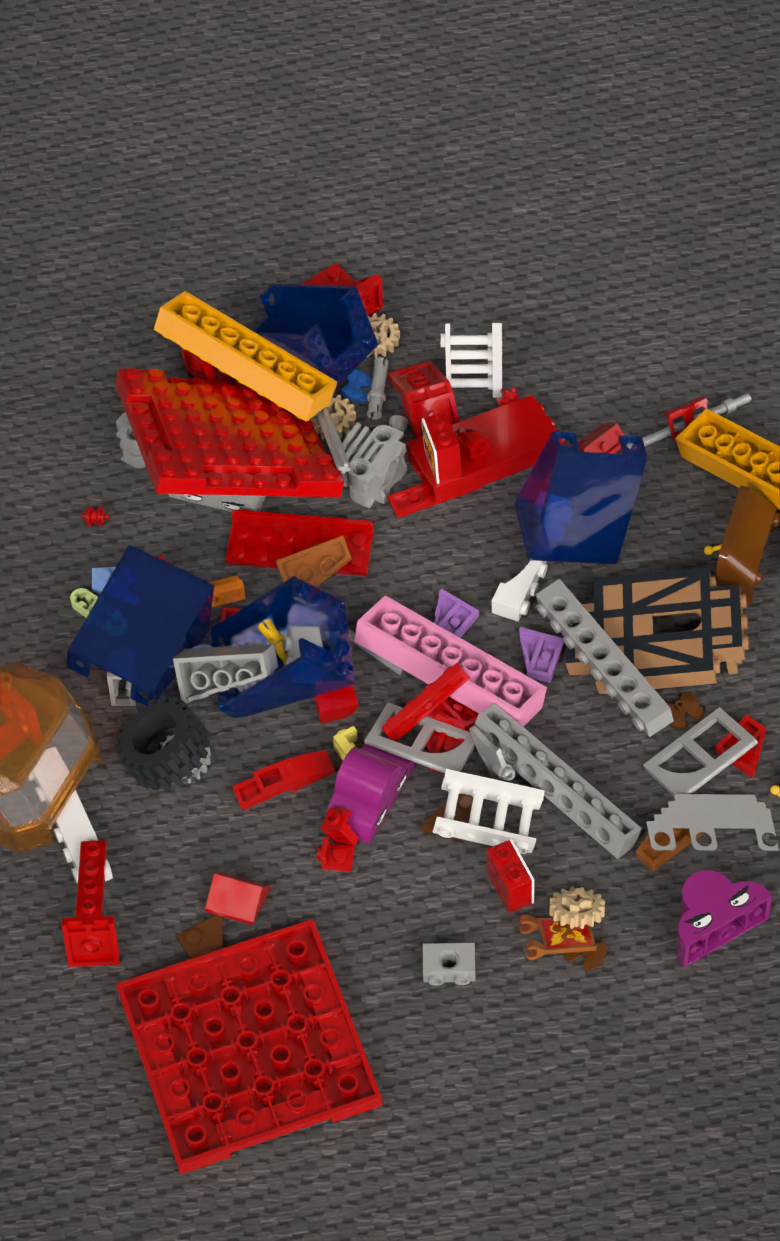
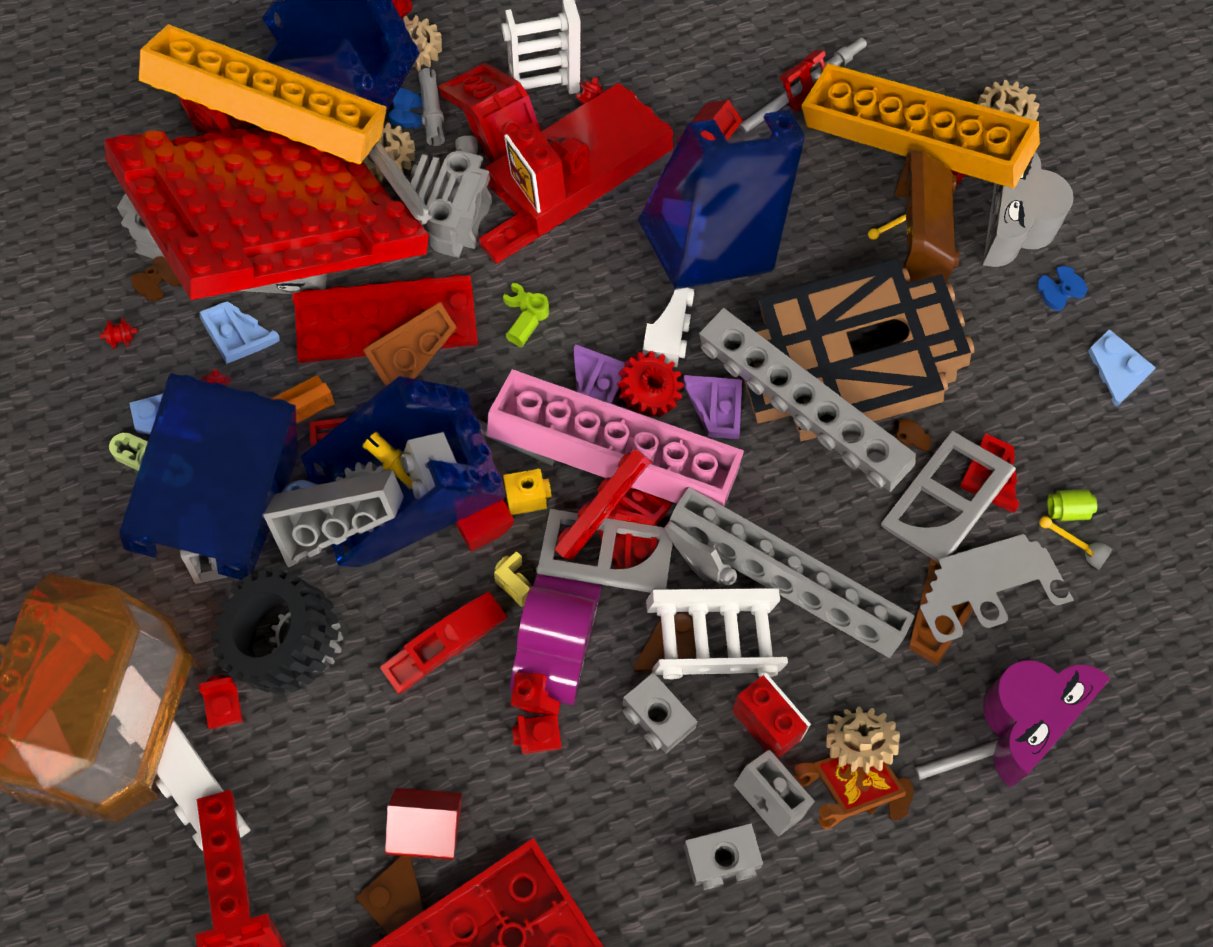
camera: 20 degrees left, 10 degrees up
(112, 787) = (221, 701): none -> red bracket
(124, 483) = (147, 283): none -> reddish brown piece
(183, 532) = (235, 332): none -> light blue wing
(373, 686) = (526, 491): none -> yellow brick
(416, 557) = (534, 308): none -> lime bar
(425, 847) = (653, 695): none -> light grey brick
(498, 620) = (637, 393): none -> red gear
(498, 928) = (773, 792): none -> light grey brick
(645, 941) = (956, 760): none -> light grey bar

